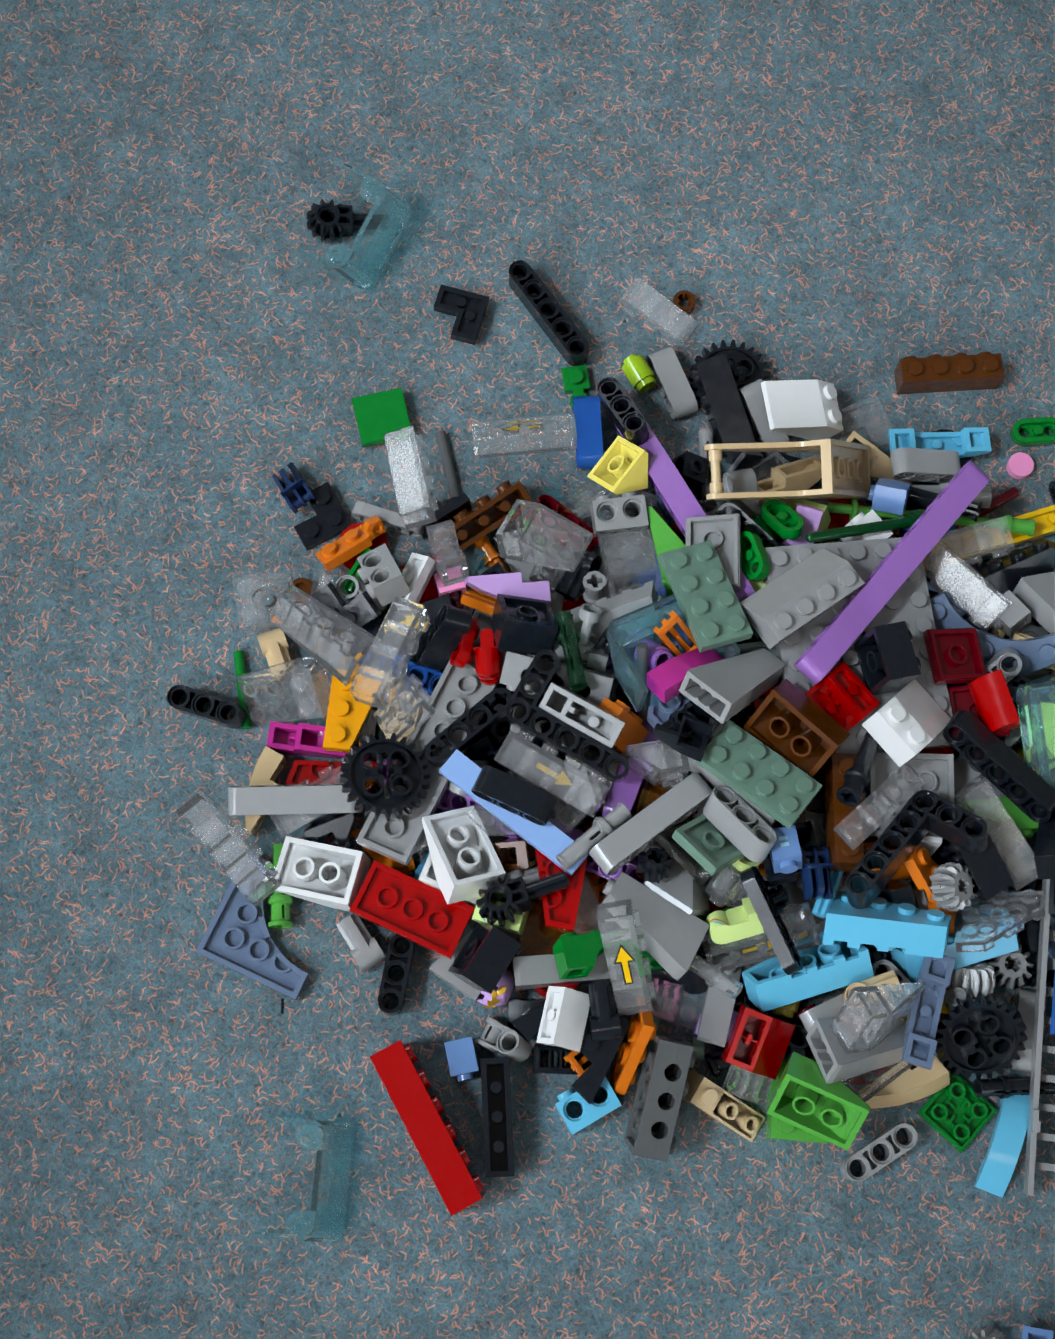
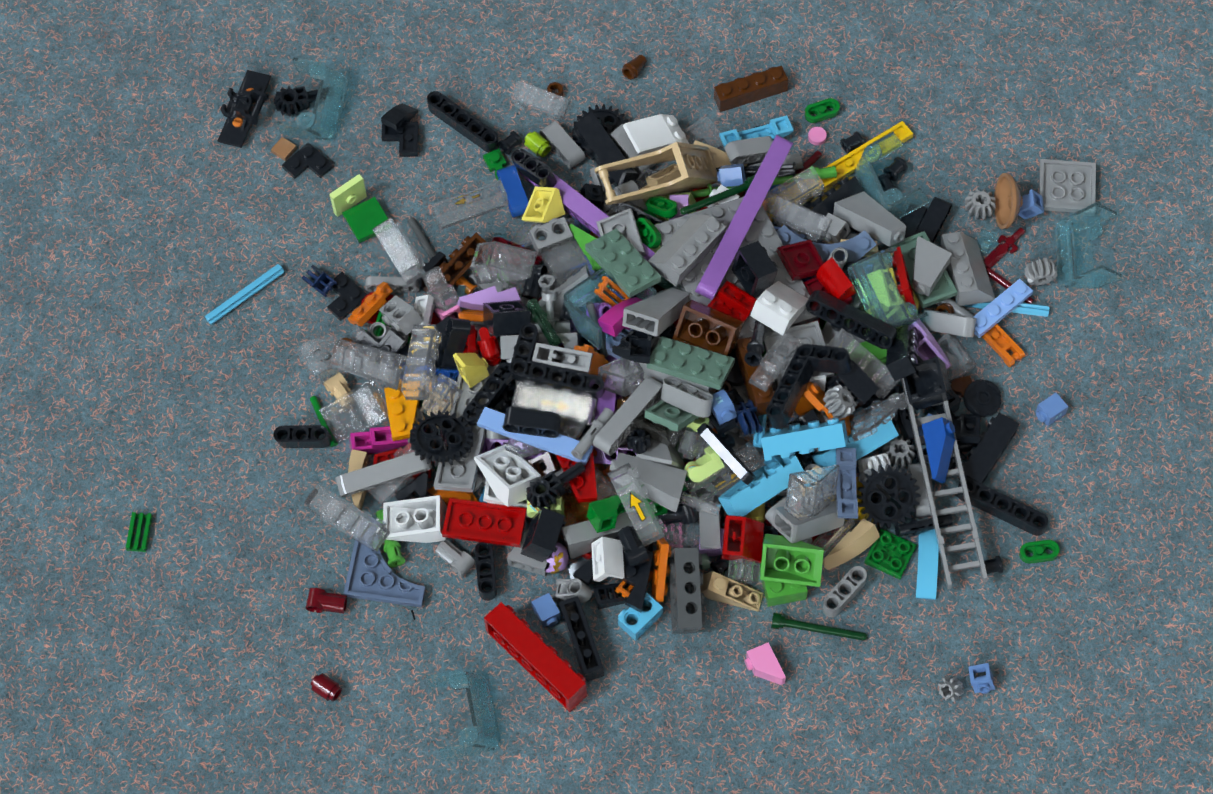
camera: 10 degrees left, 10 degrees down
(133, 1081) = (326, 687): none -> dark red brick
(165, 953) = (322, 601): none -> dark red piece
(190, 477) = (244, 294): none -> medium azure axle
(252, 229) = (237, 111): none -> black piece
(301, 285) = (283, 149): none -> medium nougat tile
(327, 306) = (307, 158): none -> black plate
(365, 377) = (348, 195): none -> yellowish green plate
(456, 683) = (471, 368): none -> light yellow slope
(465, 280) = (398, 115): none -> black slope
(603, 360) = (510, 142): none -> black bush
(739, 1228) = (765, 664): none -> bright pink slope
(777, 1169) = (779, 622): none -> dark green piece
(797, 299) = (633, 67): none -> reddish brown cone

